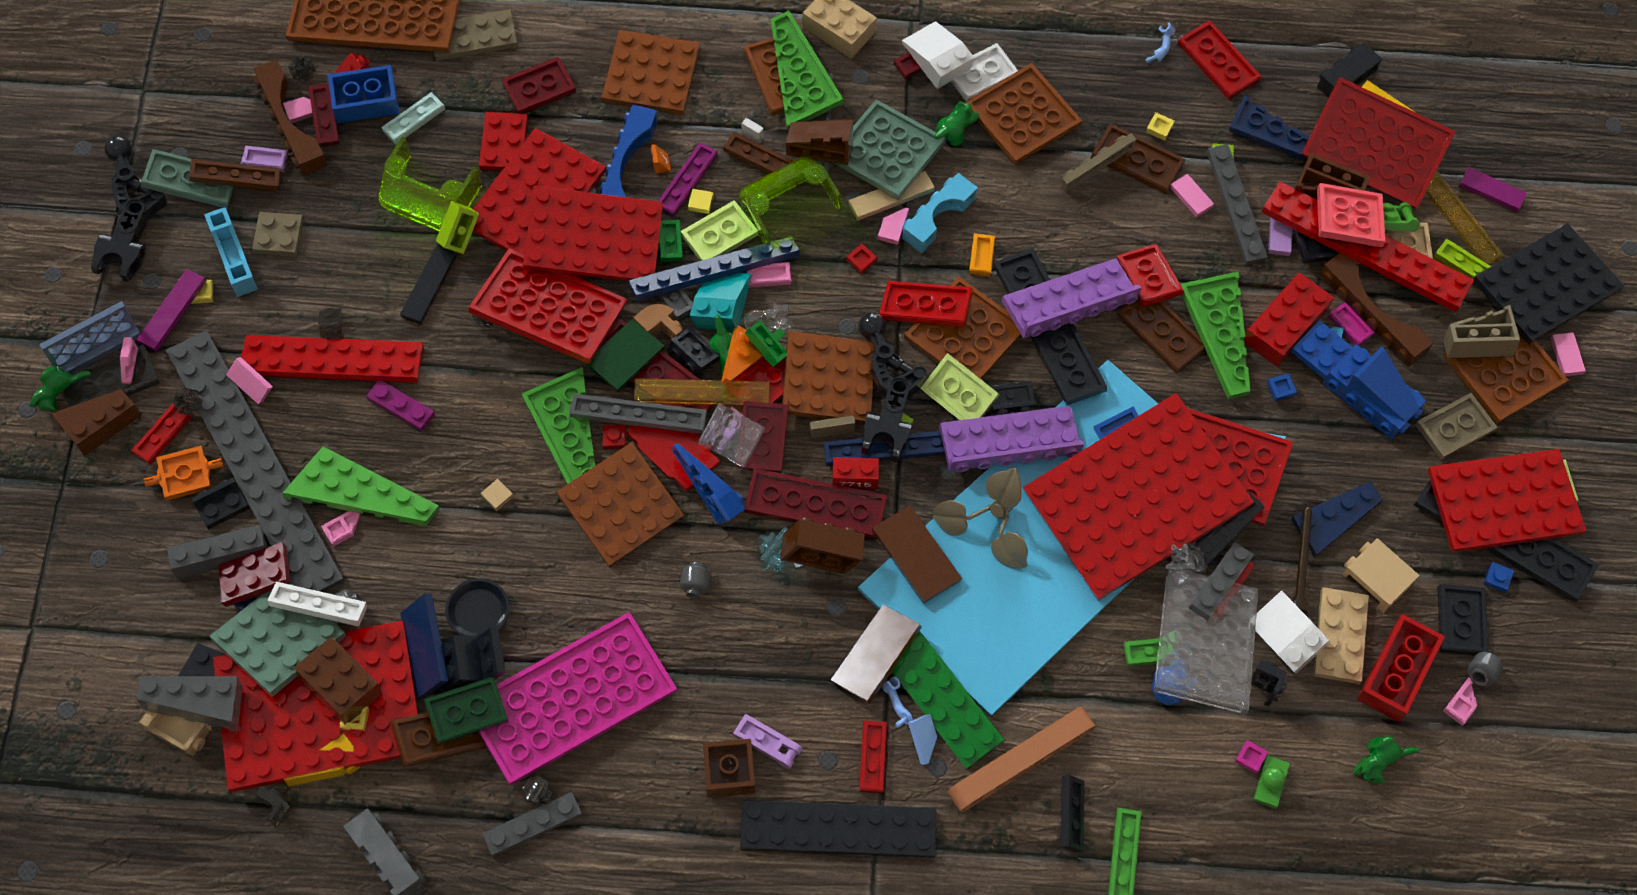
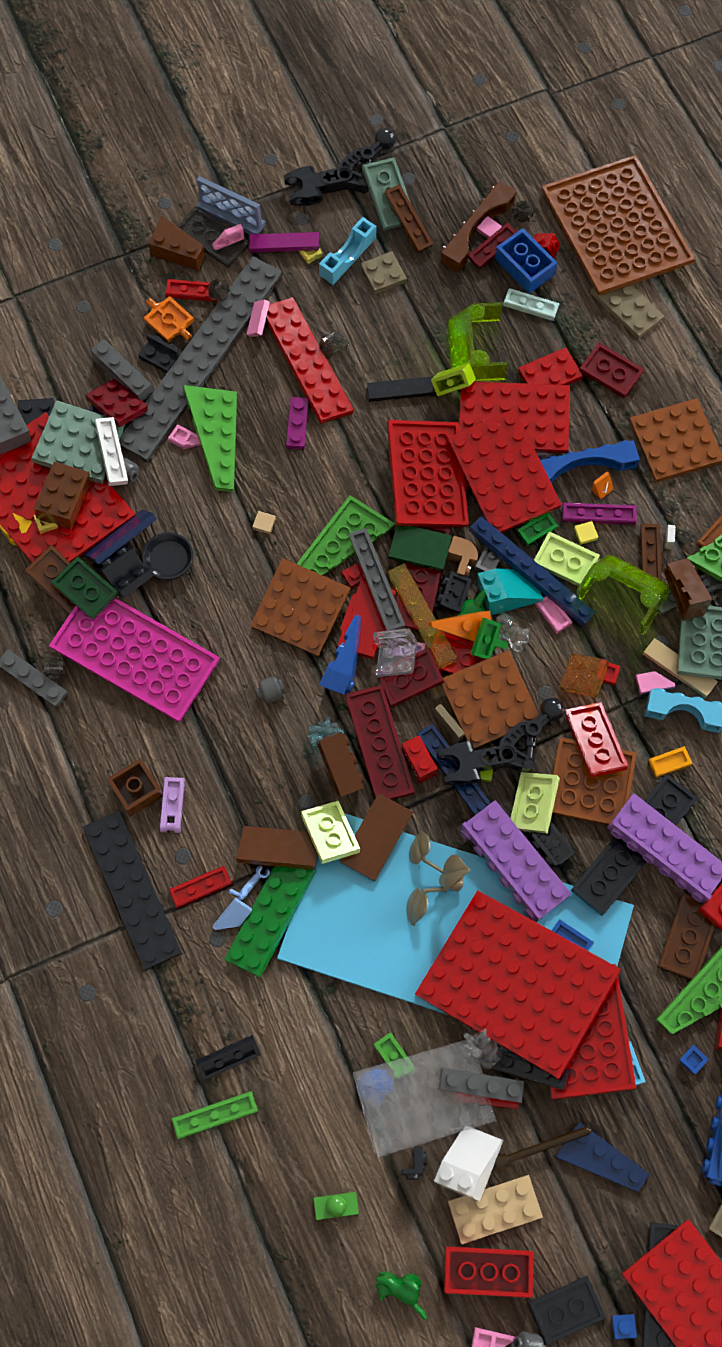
camera: 65 degrees right, 5 degrees up
(54, 382) = (186, 204): green animal -> none
(265, 157) = (437, 230): lavender tile -> none
(852, 279) = (584, 675): none -> clear orange plate
(890, 592) = (330, 832): none -> yellowish green plate
(1021, 759) = (253, 998): nougat beam -> none
(1251, 756) = (347, 1179): dark pink plate -> none
(1381, 573) = (566, 1218): tan panel -> none

